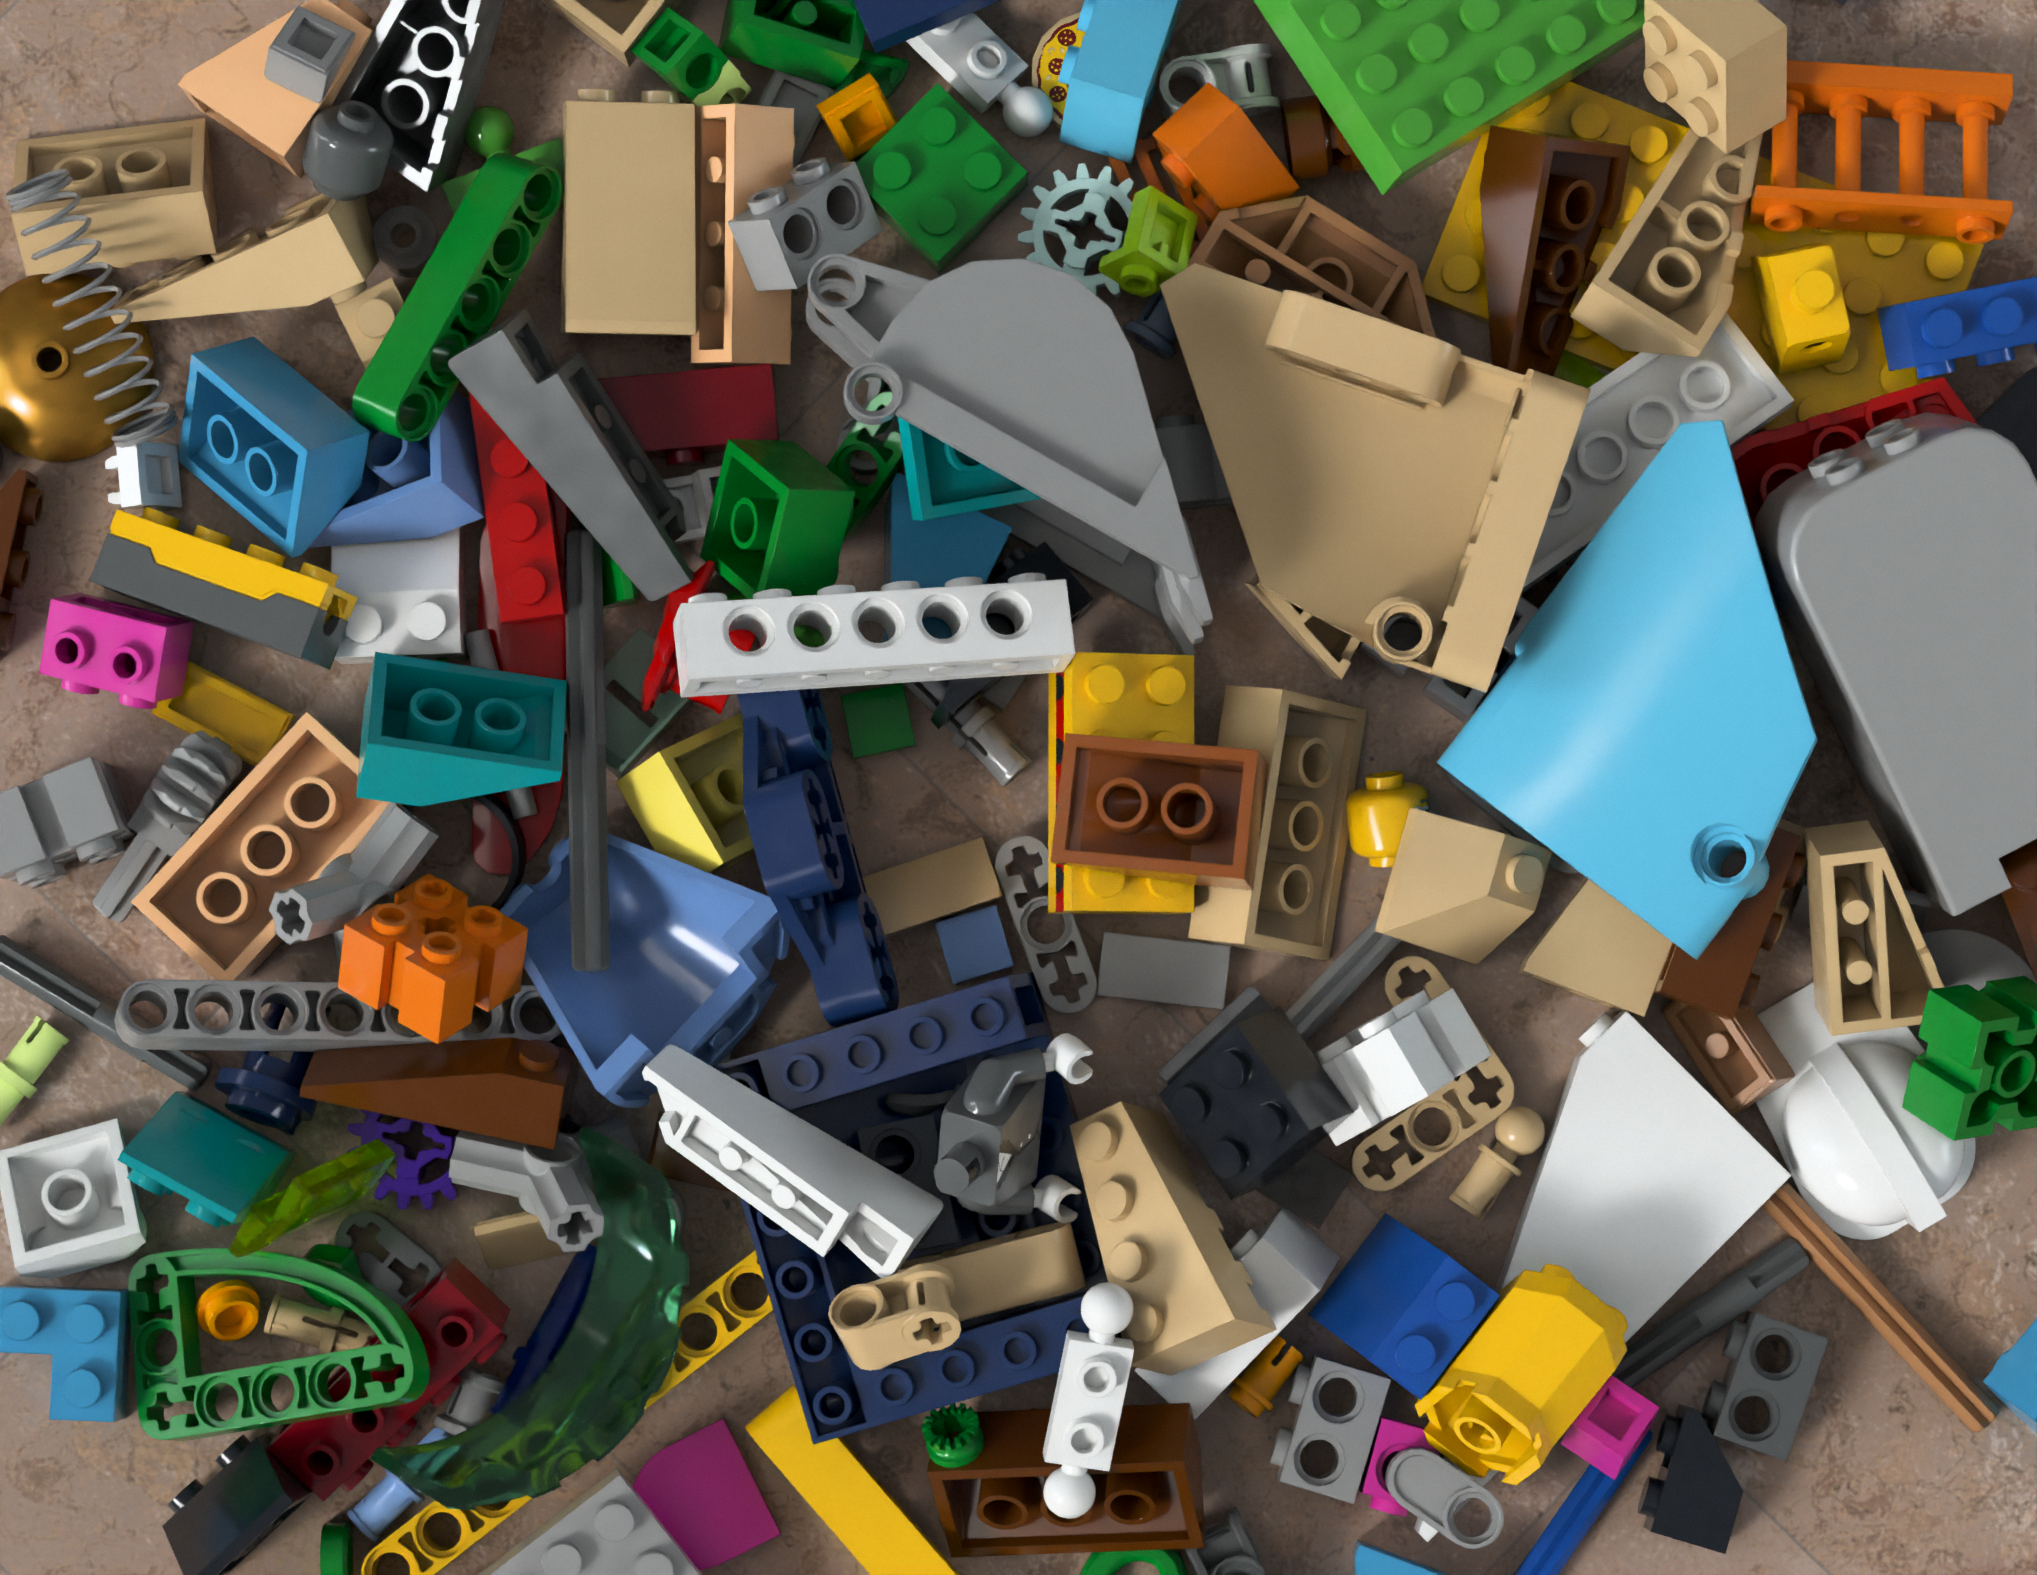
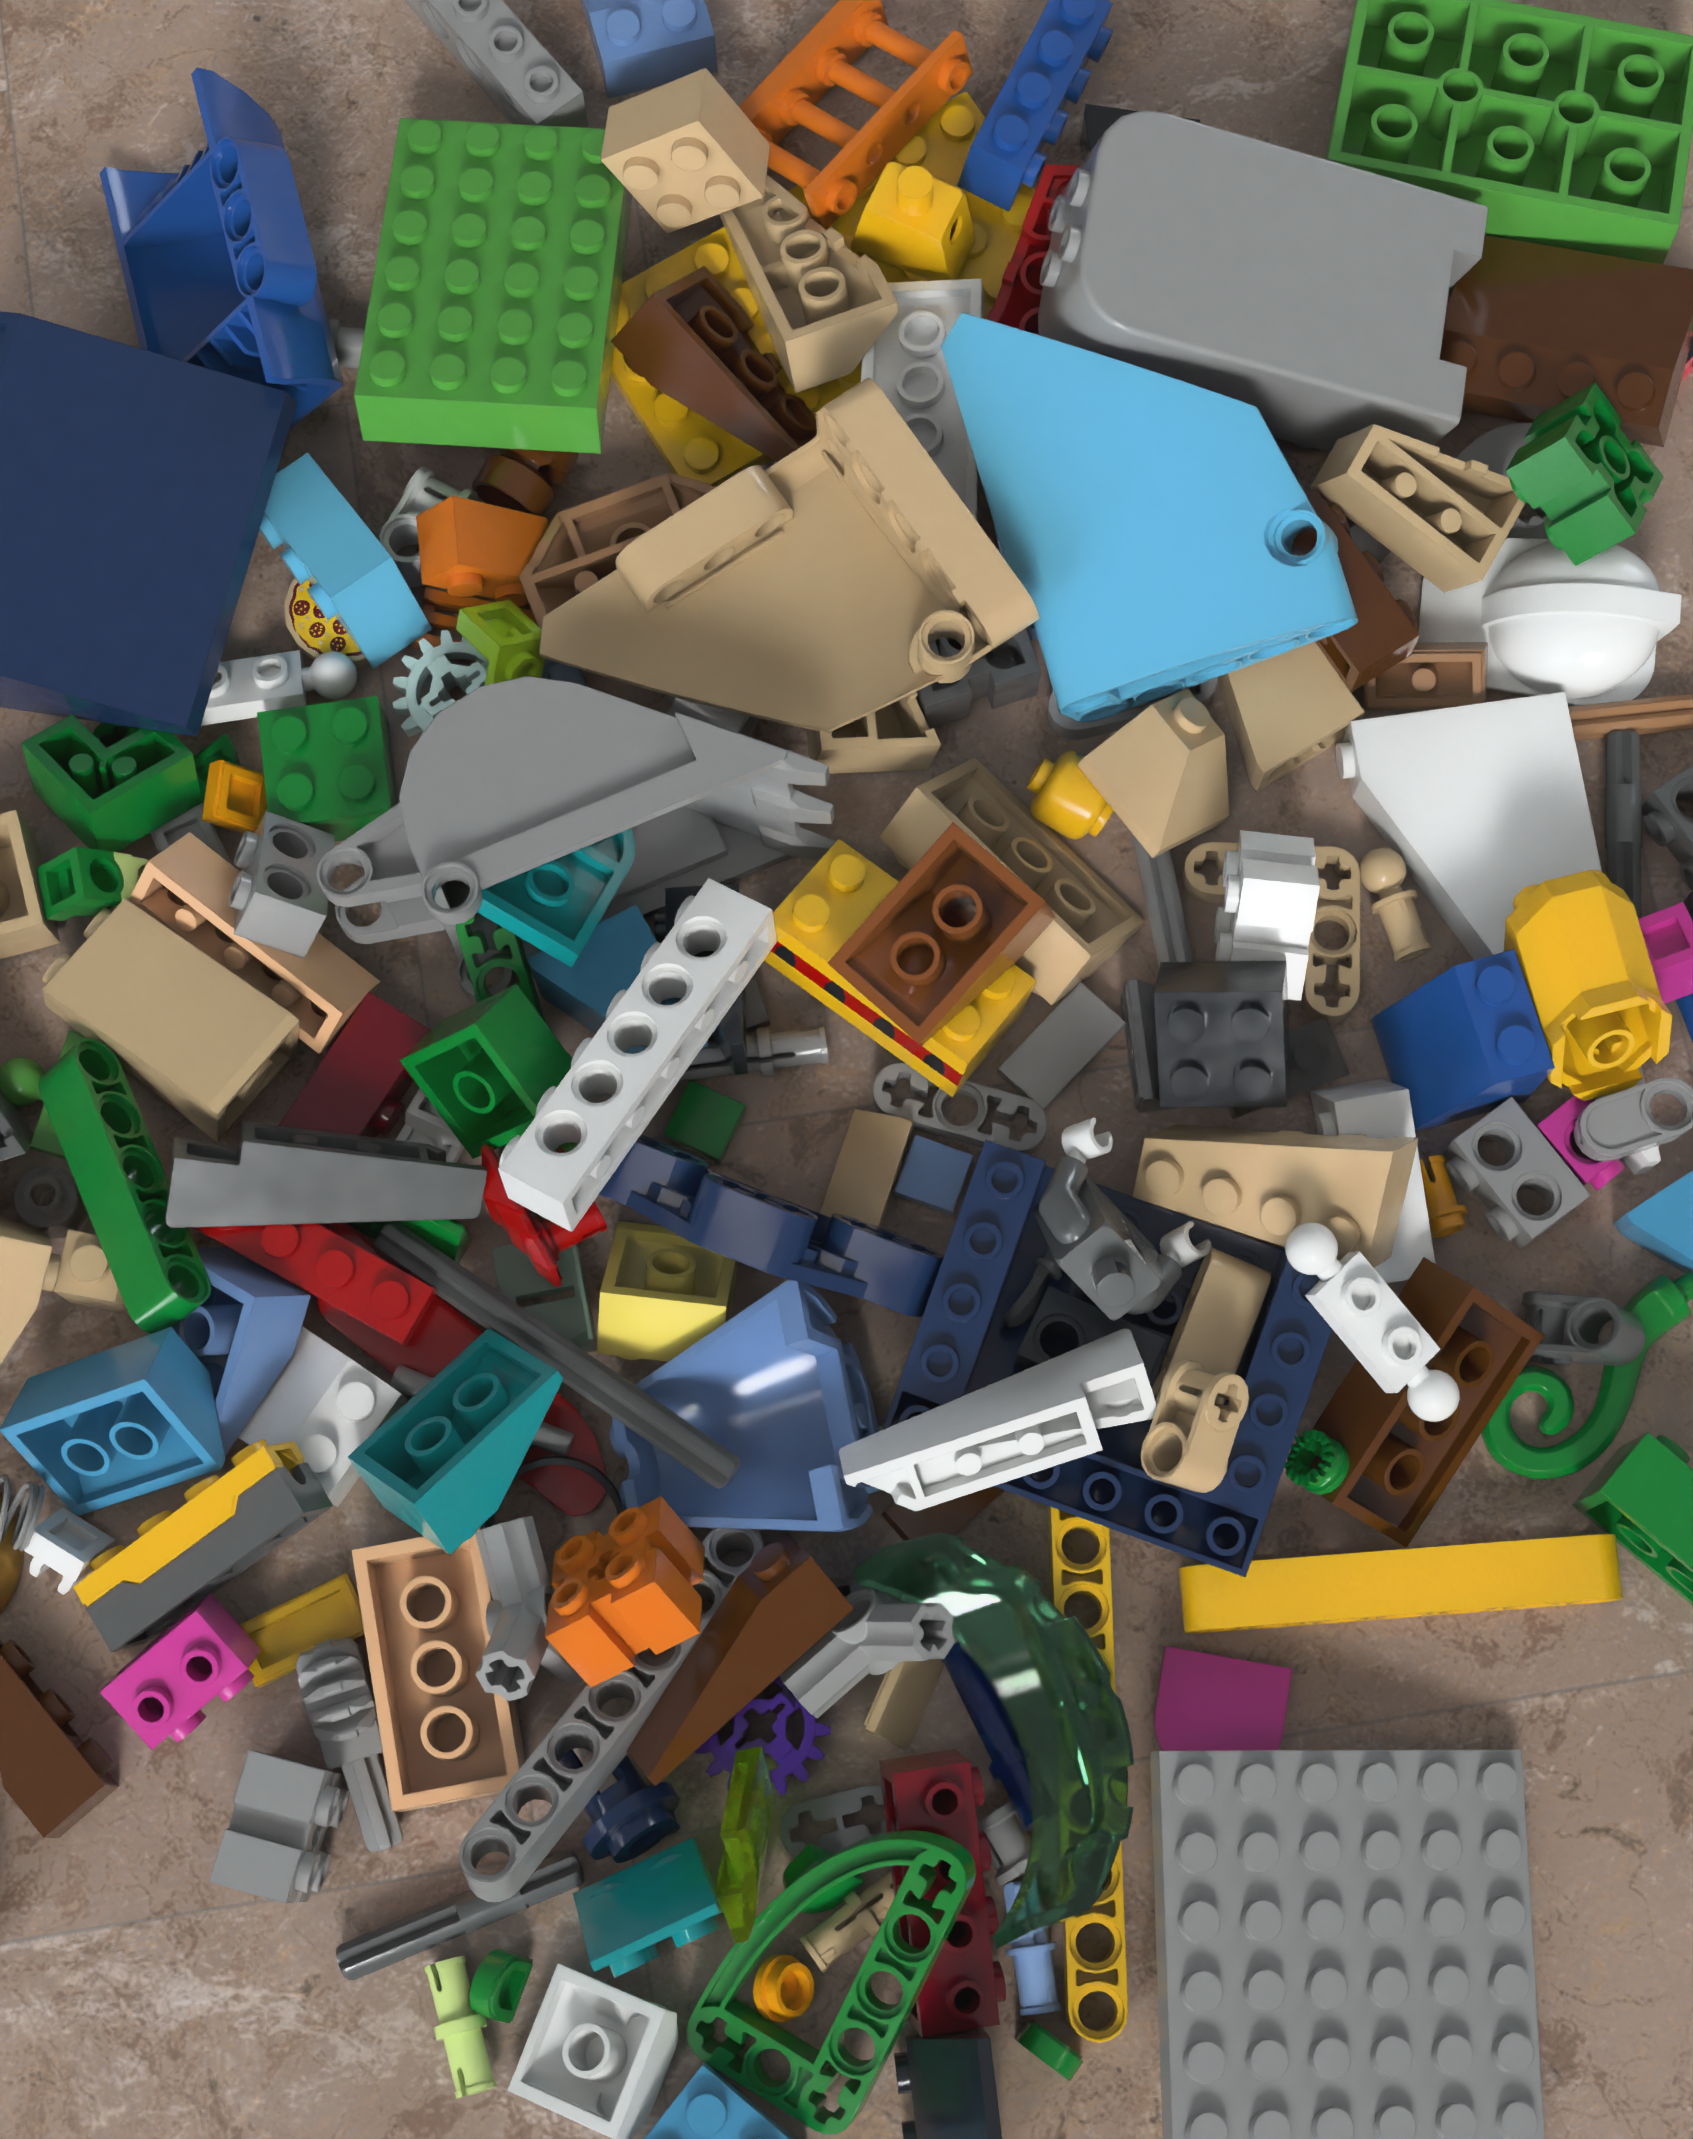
camera: 50 degrees left, 10 degrees down
(67, 1085) = (499, 1984): none -> green tile

